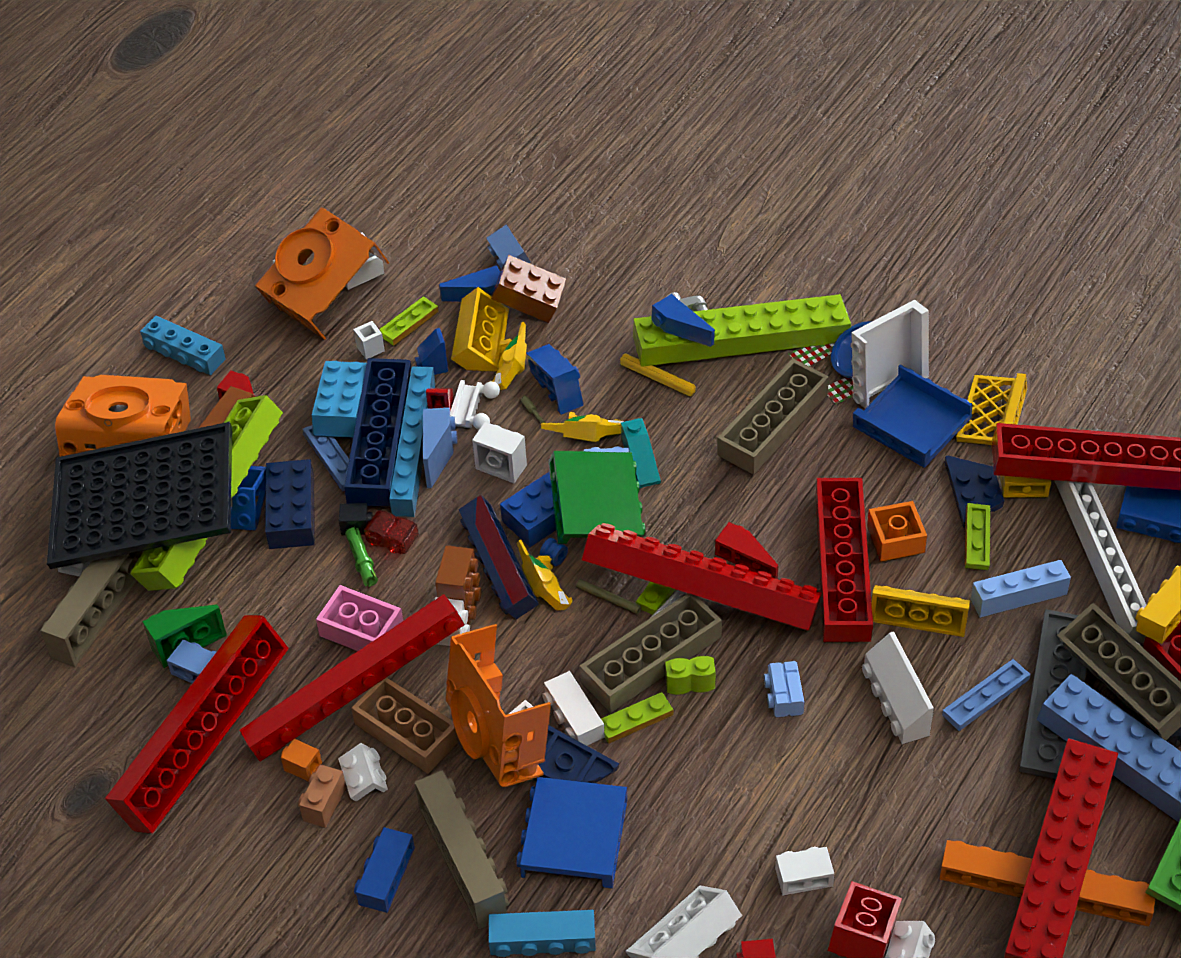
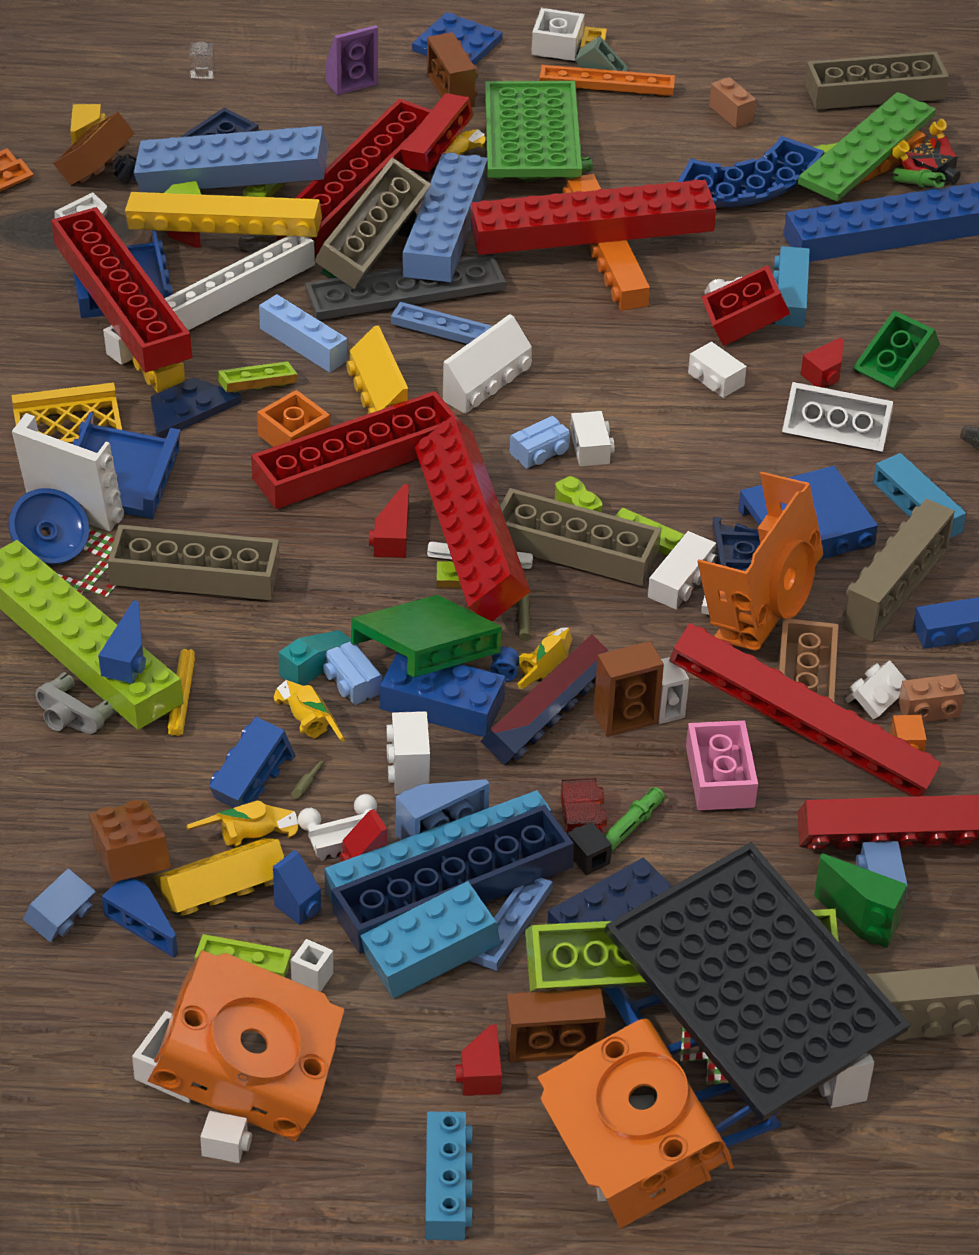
camera: 125 degrees left, 5 degrees down
(768, 727) = (591, 438): none -> white brick

